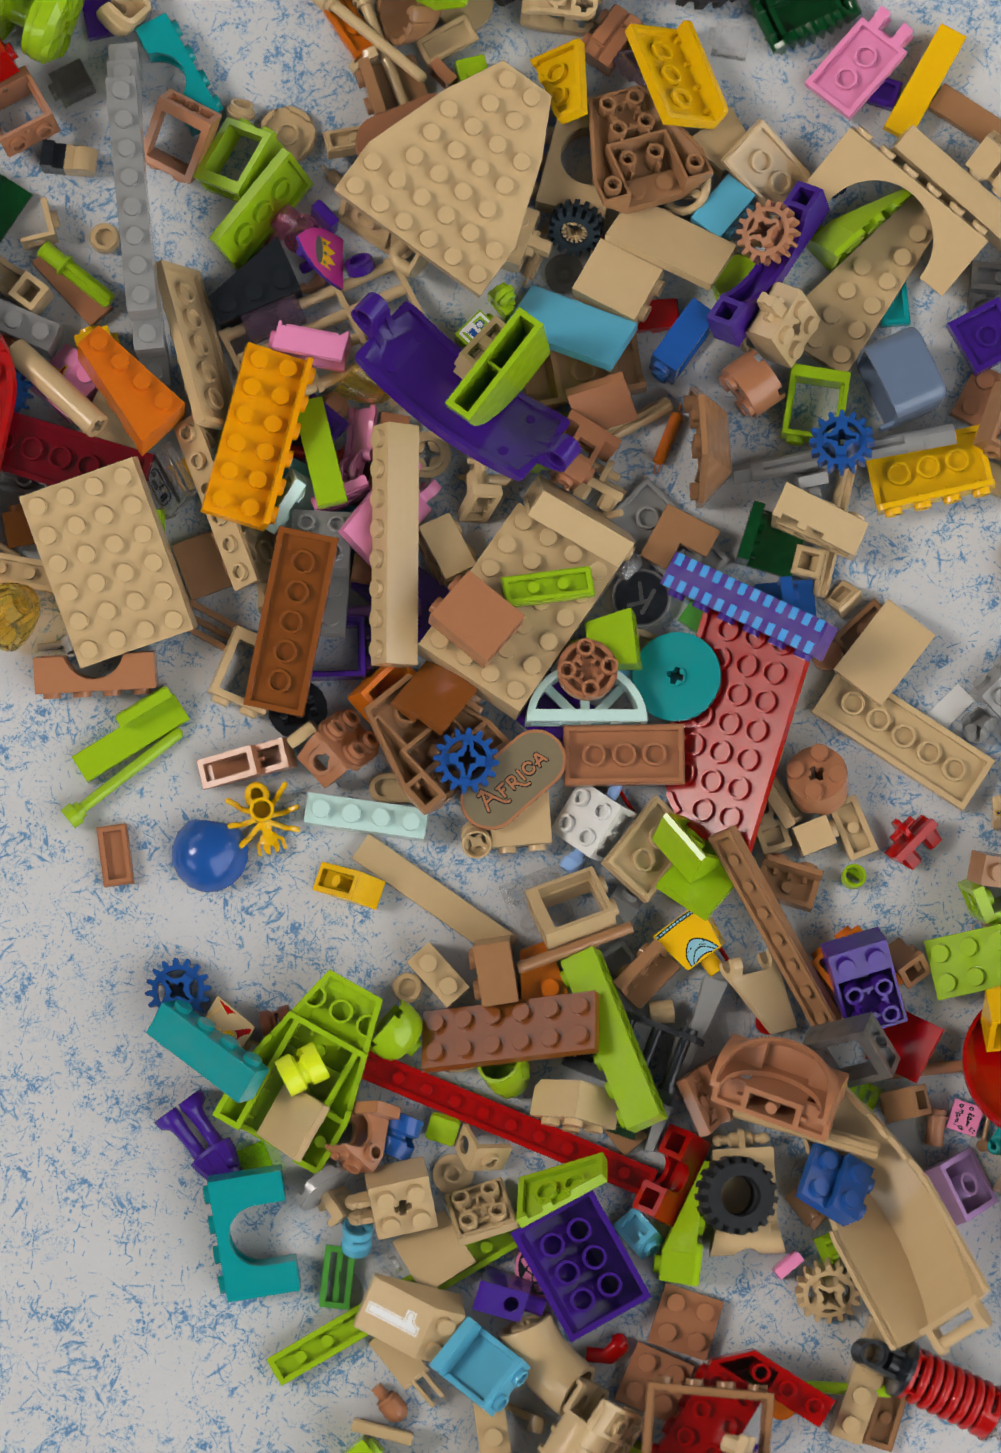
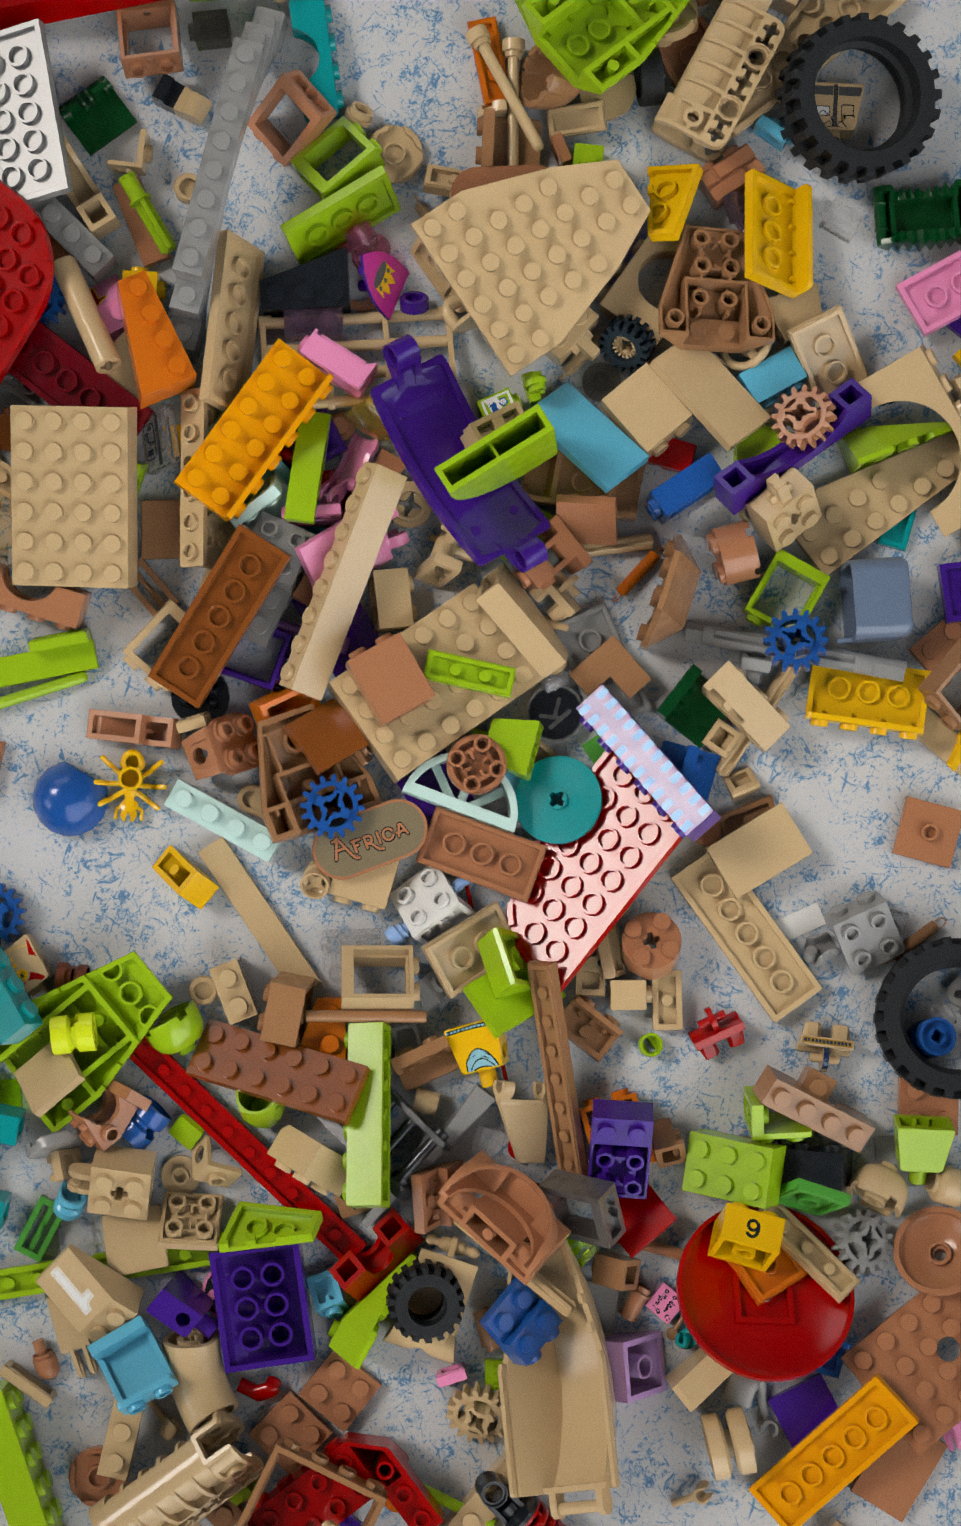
camera: 20 degrees right, 5 degrees up
(324, 216) = (398, 245): dark purple tile -> none

